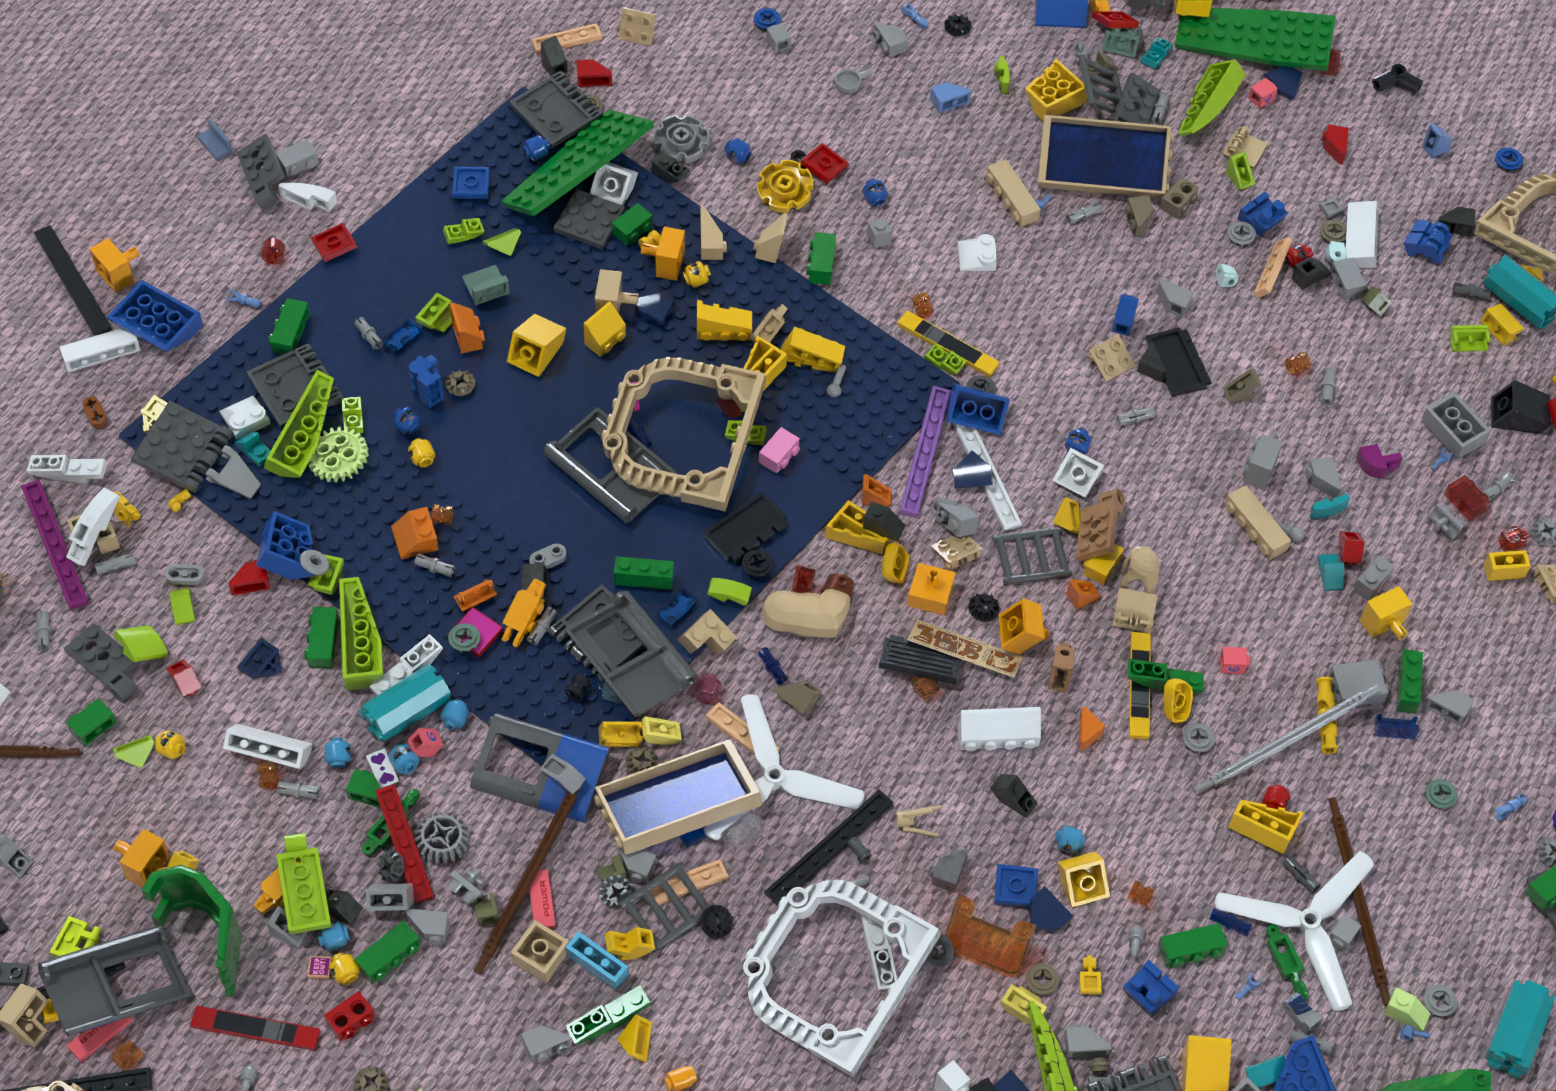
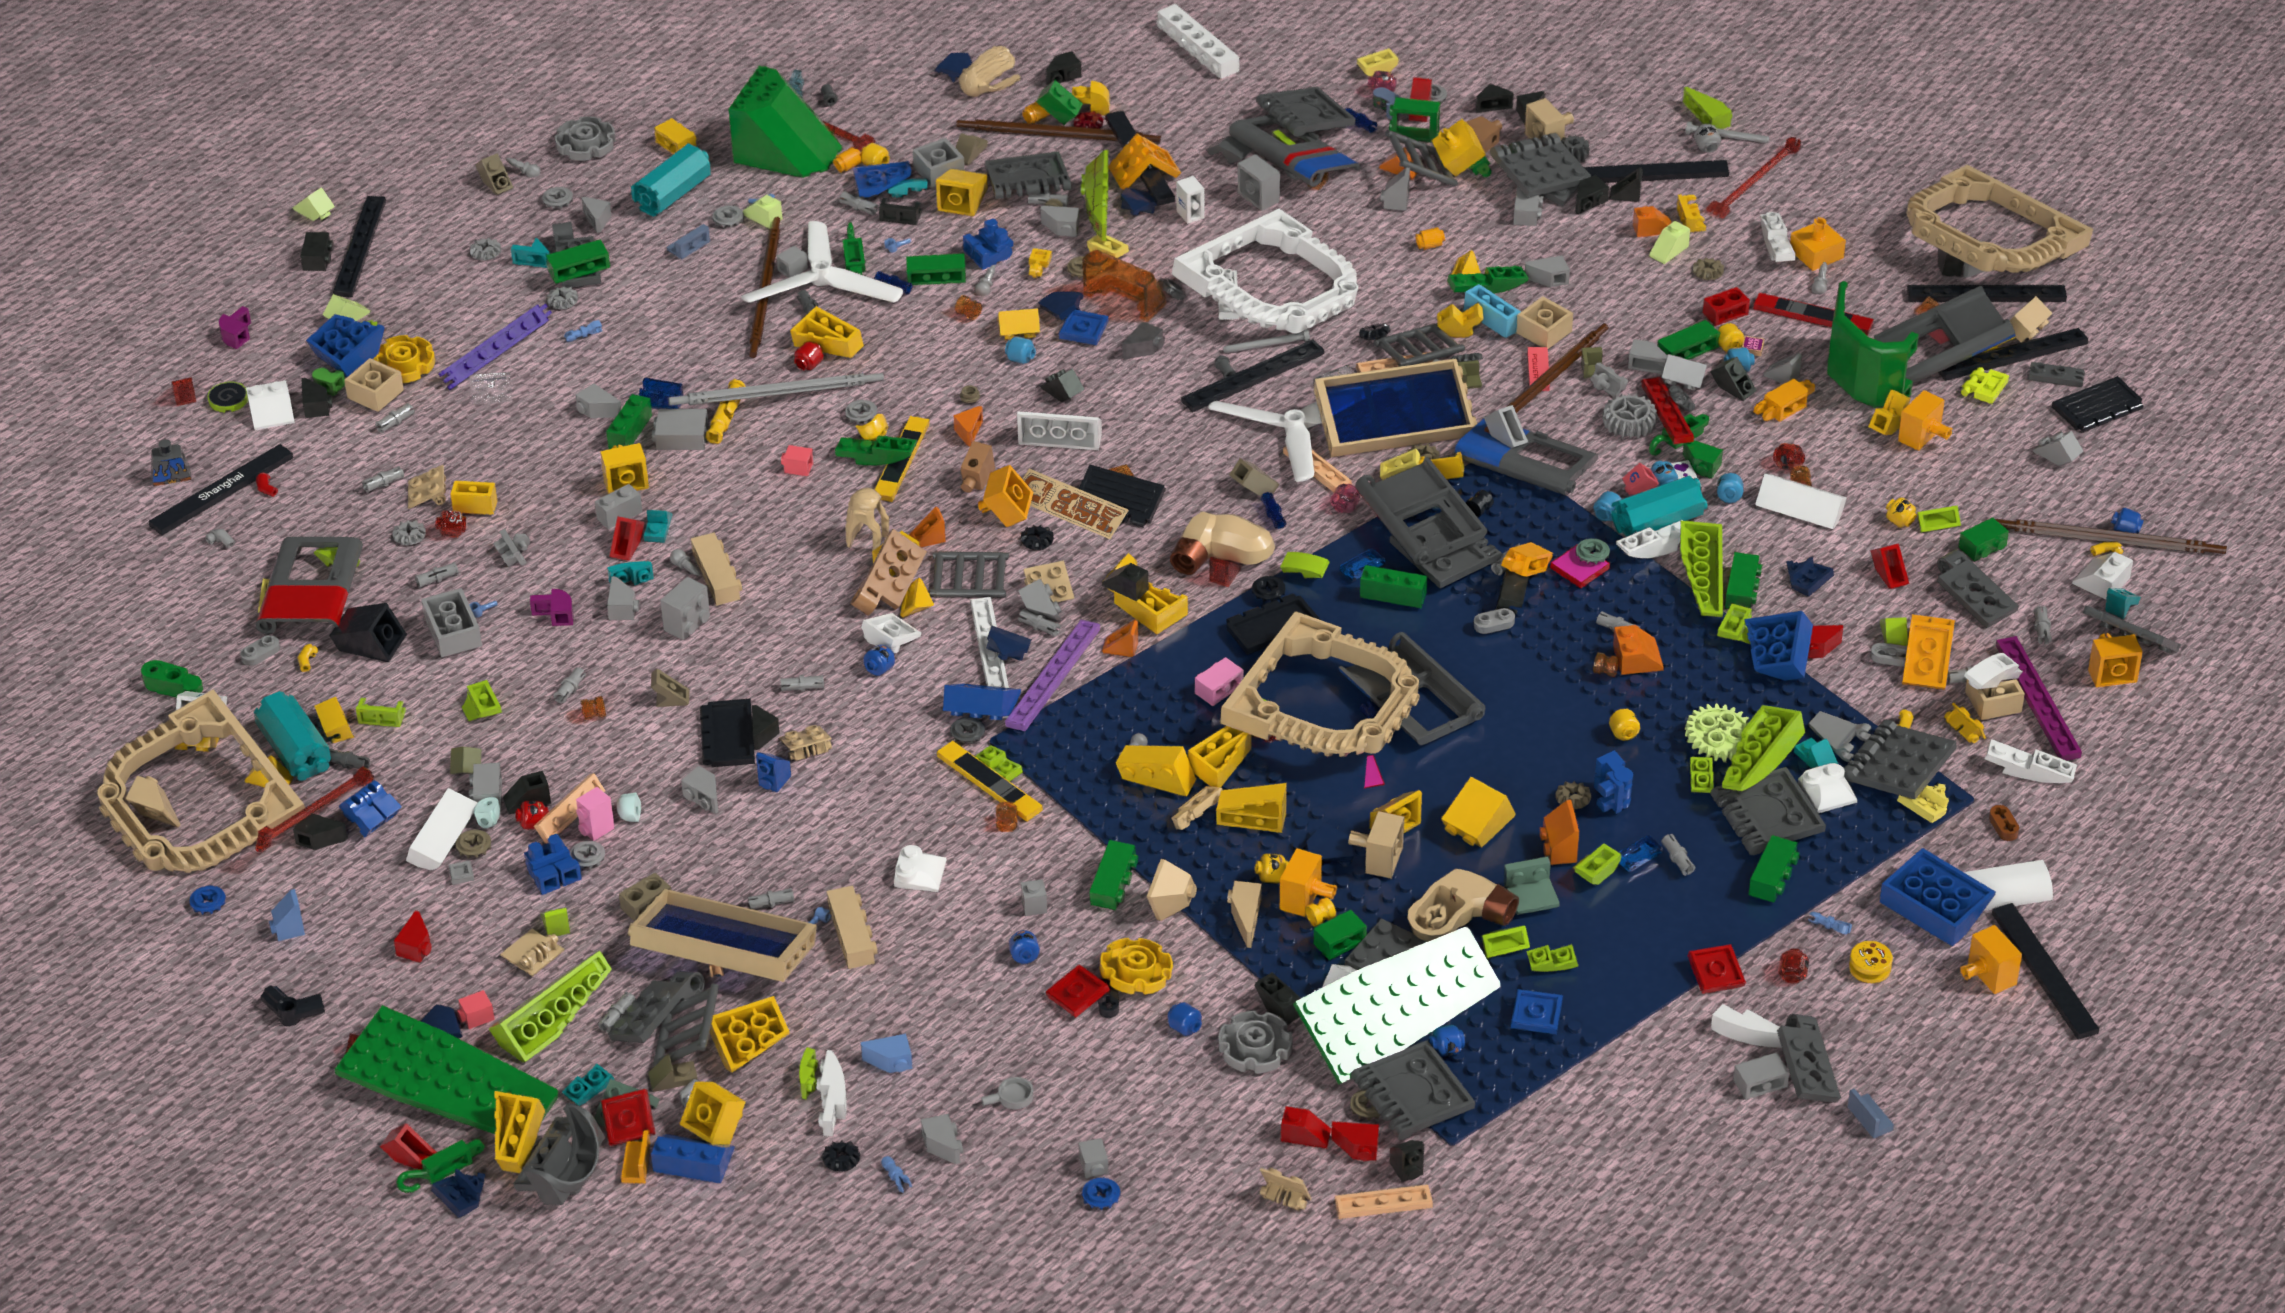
camera: 165 degrees left, 15 degrees down
(141, 643) = (1935, 590): lime slope -> none
(149, 580) = (1928, 652): none -> light orange bracket
(211, 265) = (1870, 962): none -> yellow head
(279, 803) = (1788, 456): none -> clear red head
(298, 789) = (1758, 465): light grey pin -> none
(302, 886) = (1767, 375): lime hinge -> none
(310, 556) = (1746, 612): light grey piece -> none
(406, 420) = (1639, 755): blue head -> none
(475, 595) = (1573, 595): orange hinge -> none
(545, 252) = (1456, 900): none -> tan piece
(632, 77) = (1304, 1128): none -> red slope
(708, 630) = (1338, 529): tan brick -> none
(906, 818) = (1172, 381): tan plant -> none
(931, 589) = (1089, 548): light orange brick -> none
(979, 64) = (832, 1093): none -> white slope
(1054, 23) = (712, 1113): none -> yellow brick
(1101, 770) = (969, 394): none -> dark tan plate
(1135, 610) = (892, 503): tan hinge -> none
(1139, 212) = (703, 881): dark tan slope -> none
(1248, 252) = (594, 814): none -> bright pink brick
(1261, 1034) = (899, 213): none -> pearl dark grey hinge
(1302, 1013) = (854, 213): light grey leg -> none
(1389, 358) = (480, 701): none -> lime slope
(1446, 789) = (638, 344): sand green gear -> none
(1450, 278) = (266, 834): none -> clear red hinge
(1464, 954) = (690, 242): none -> sand blue panel
(1467, 497) = (476, 565): clear red brick -> none

